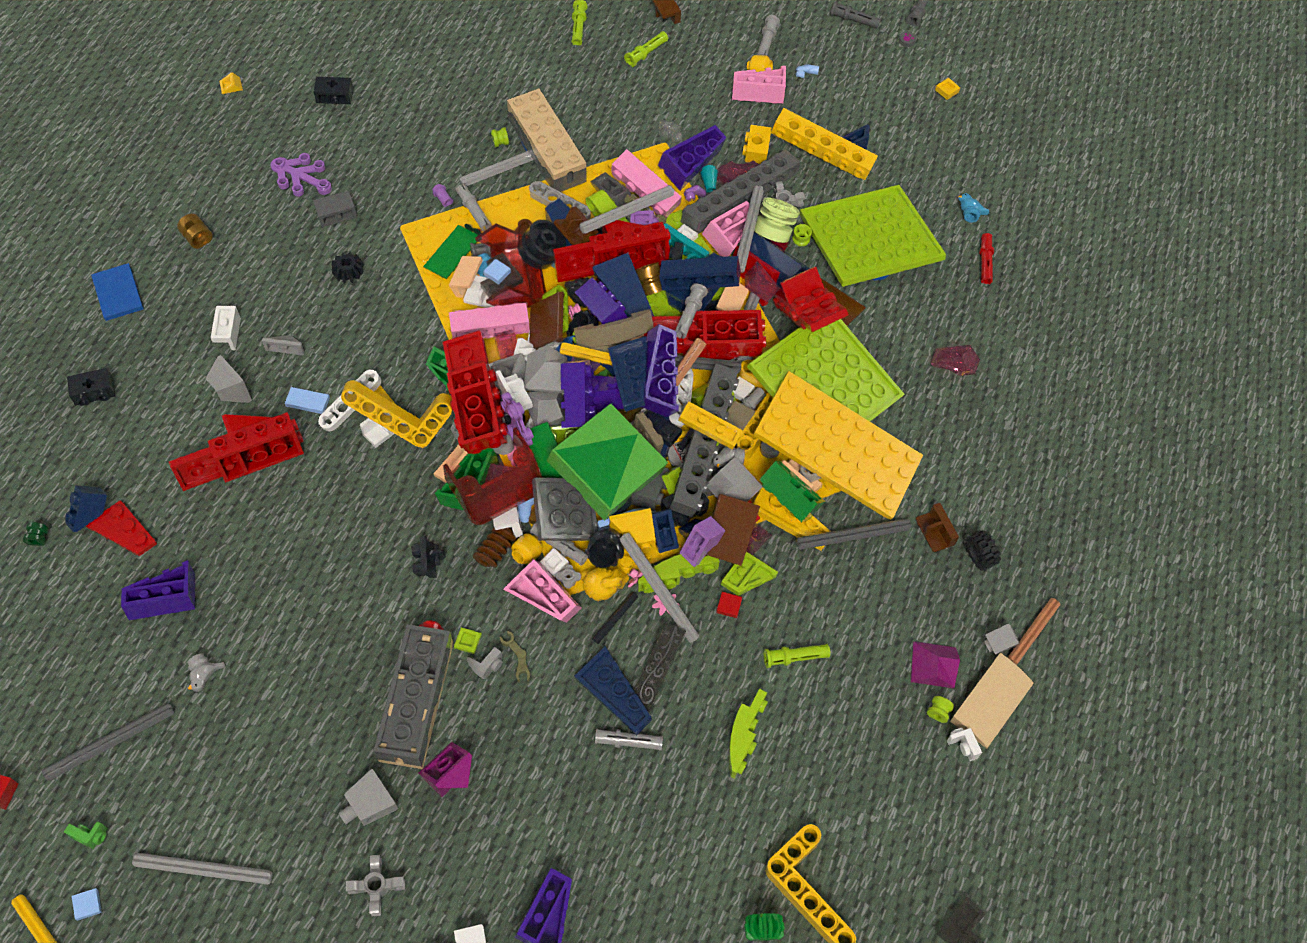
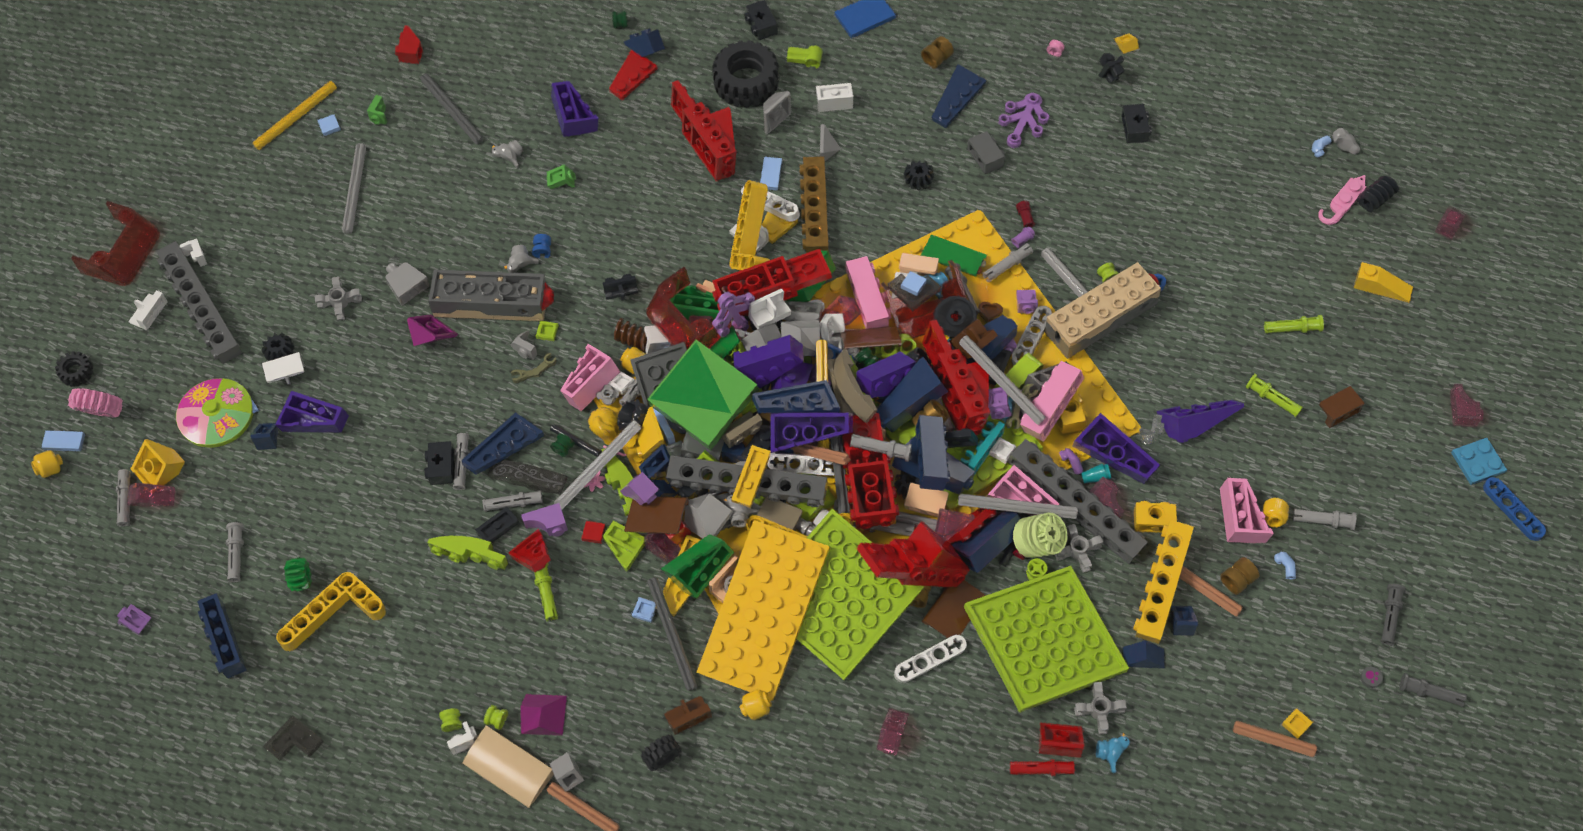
camera: 90 degrees right, 0 degrees up
(159, 346) = (809, 57): none -> lime piece
(175, 425) = (743, 56): none -> black tyre
(221, 136) = (1055, 48): none -> bright pink bush
(252, 224) = (957, 95): none -> dark blue wing
(256, 614) = (560, 176): none -> bright green bracket
(261, 93) = (1111, 68): none -> black hips
(351, 638) = (541, 245): none -> blue wheel
(364, 665) = (519, 259): none -> light grey animal
(370, 357) = (814, 180): none -> pearl gold brick
(416, 189) = (1024, 211): none -> dark red pin
(520, 200) = (1026, 301): none -> medium lavender bracket
(569, 323) = (866, 357): none -> dark green wheel
(622, 628) = (562, 445): none -> dark green wheel
(641, 757) = (440, 463): none -> black brick
(662, 100) = (1190, 423): none -> dark purple wedge
(685, 676) = (536, 497): none -> light grey pin
(714, 644) = (548, 519): none -> medium lavender arch
(715, 702) = (497, 525): none -> black plate
(755, 662) = (532, 552): none -> red wing
(818, 98) = (1239, 576): none -> pearl gold wheel
(821, 561) = (644, 610): none -> light blue tile
(835, 116) = (1210, 591): none -> nougat axle
(885, 175) = (1144, 655): none -> dark blue slope
(886, 325) = (929, 657): none -> white beam
(929, 467) = (755, 704): none -> yellow head
(935, 209) = (1110, 707): none -> light grey pin
(944, 756) = (450, 720): none -> lime wheel
(959, 105) = (1274, 738): none -> nougat axle
(962, 240) = (1061, 740): none -> red slope

